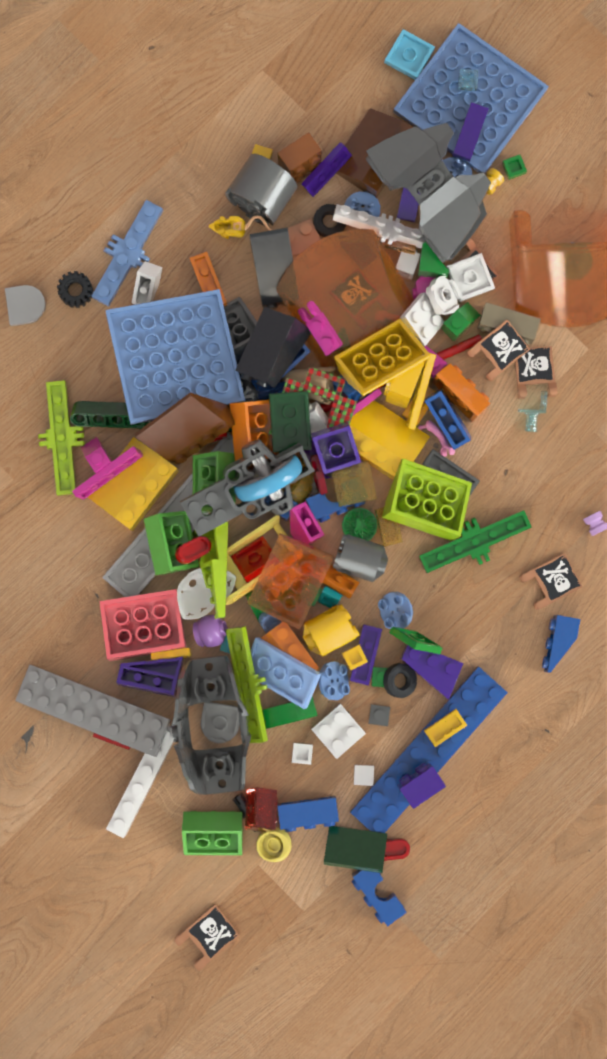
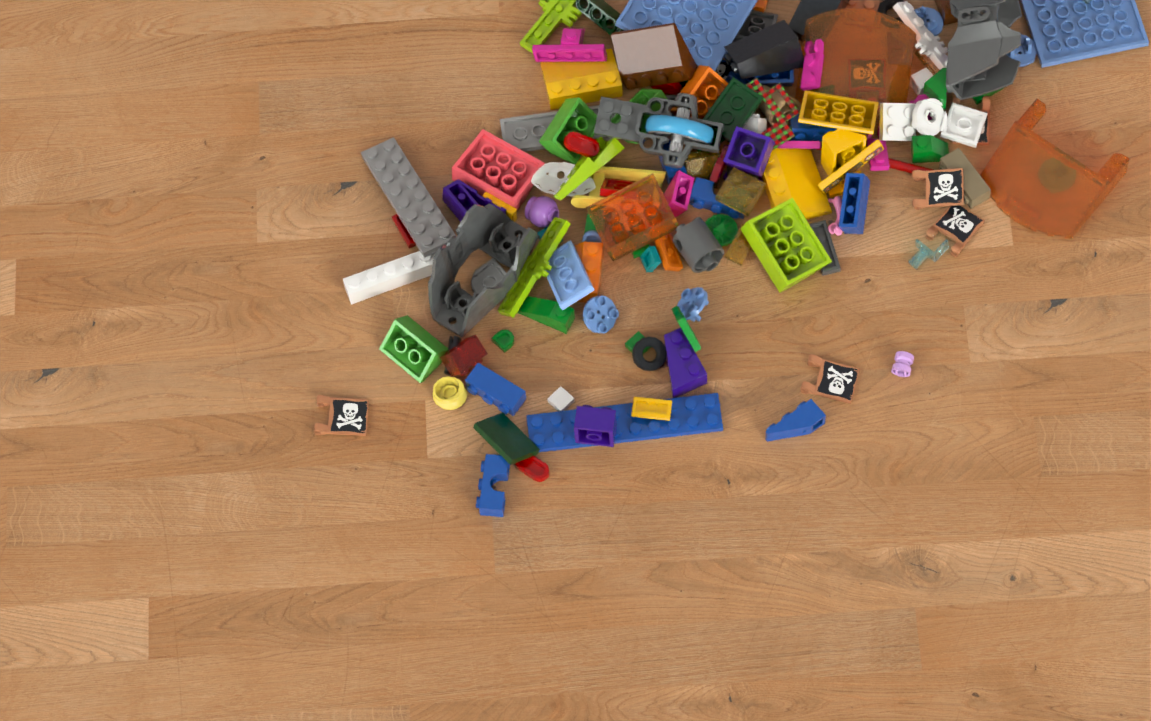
camera: 50 degrees right, 20 degrees down
(275, 762) = (503, 339): none -> green tile
(302, 753) = (529, 349): white tile -> none
(329, 630) = (628, 276): yellow cylinder -> none
(338, 731) = (571, 355): white plate -> none
(354, 657) = (630, 310): yellow tile -> none
(369, 644) = (641, 318): dark purple plate -> none
(379, 715) = (611, 368): dark grey plate -> none
(461, 391) = (883, 195): orange slope -> none
(470, 132) = (1056, 27): dark purple tile -> none
(475, 541) = (797, 306): green hinge -> none
(495, 178) = (1042, 73): yellow wheel -> none
(514, 167) = (1070, 77): green plate -> none

